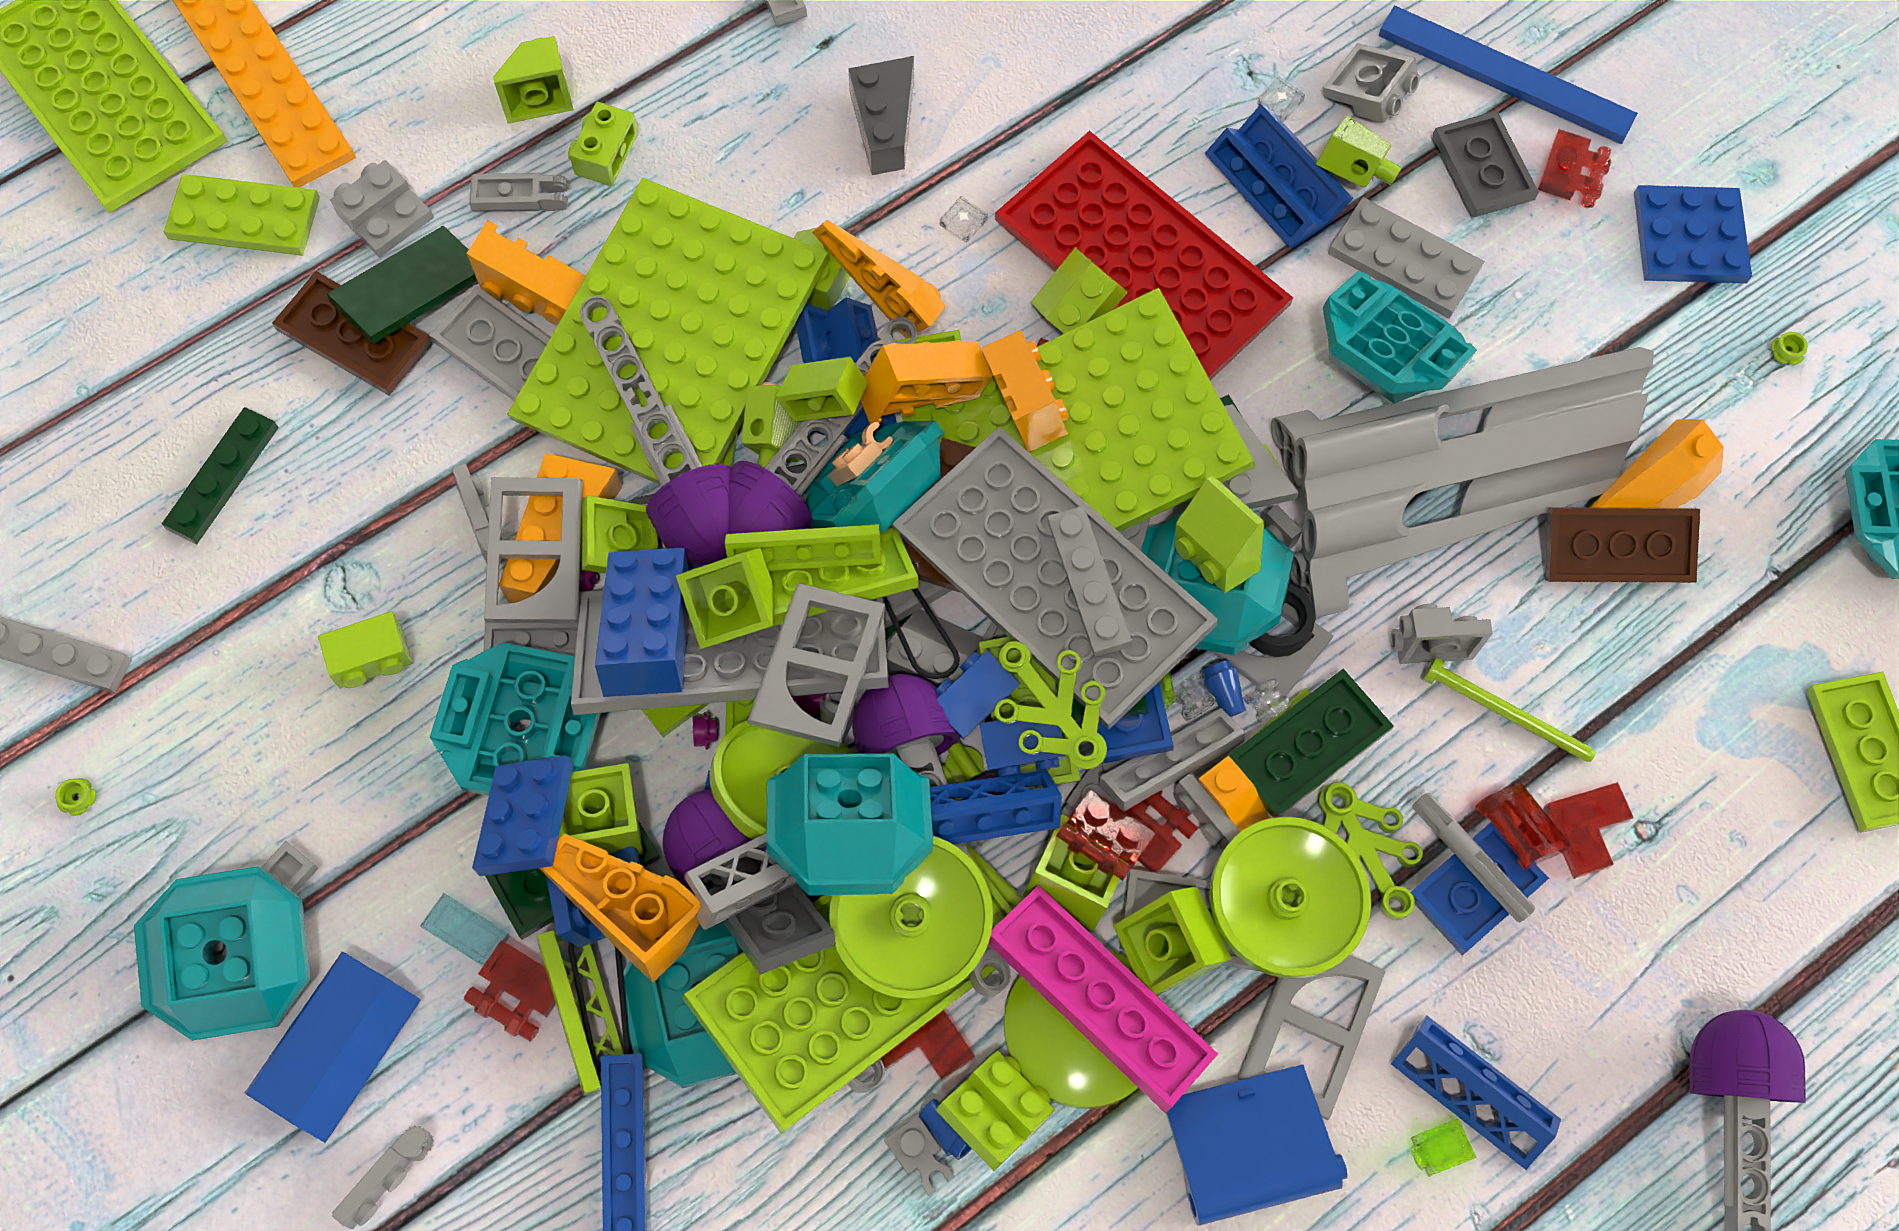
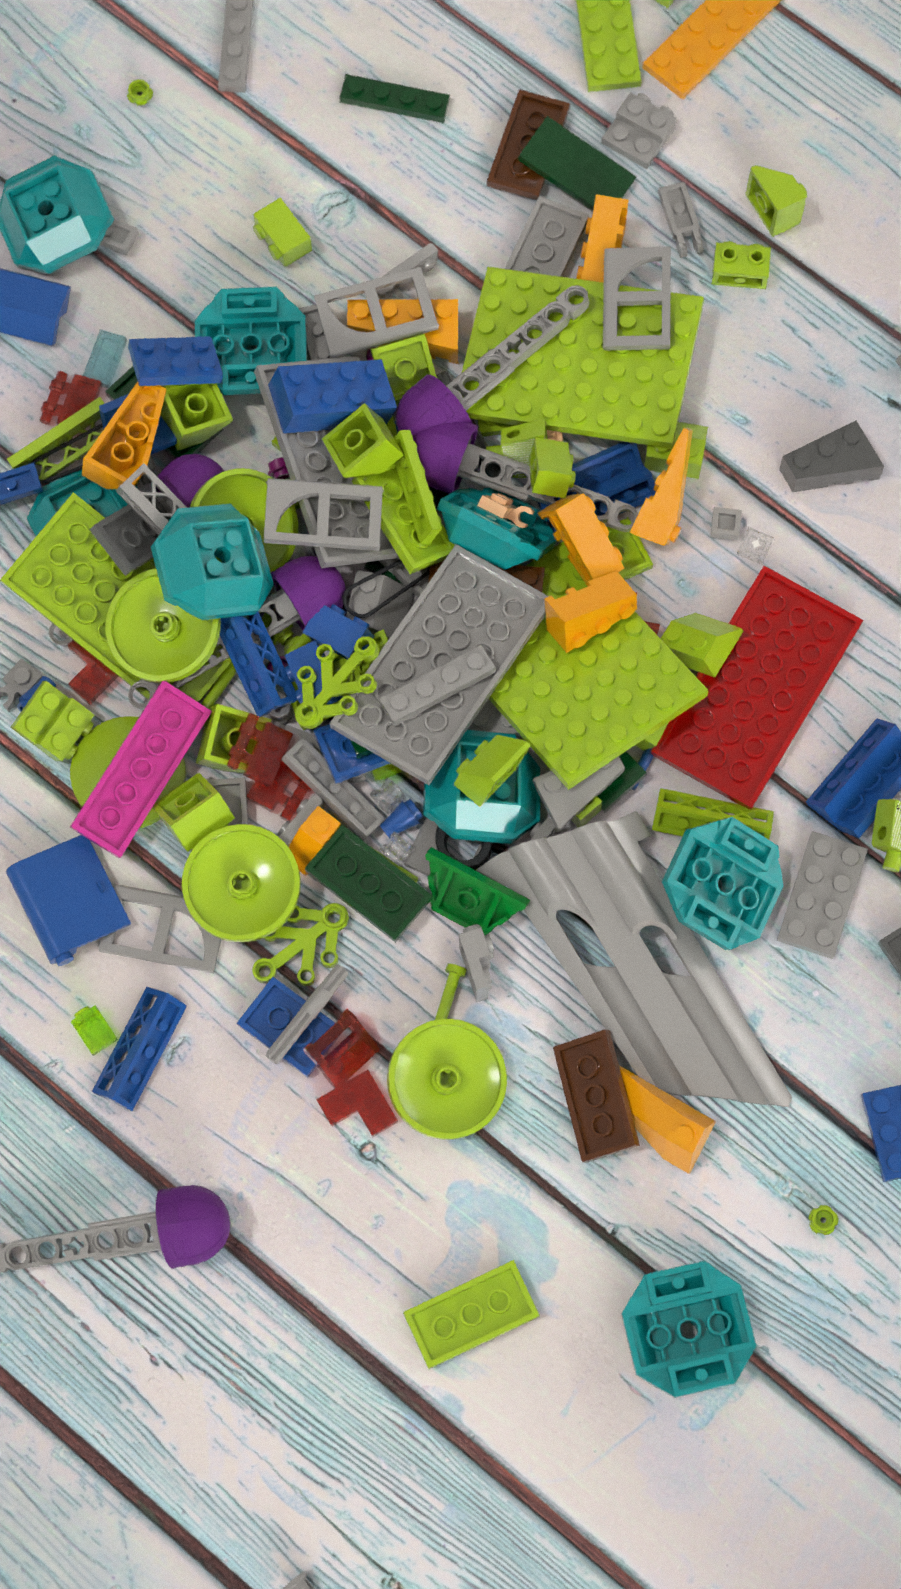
camera: 80 degrees right, 5 degrees up
(567, 258) = (617, 265): none -> light grey window
(929, 240) = (726, 523): none -> light grey plate
(1303, 350) = (683, 815): none -> lime fence
(1351, 624) = (469, 895): none -> green wing
(1581, 708) = (447, 1079): none -> lime dish

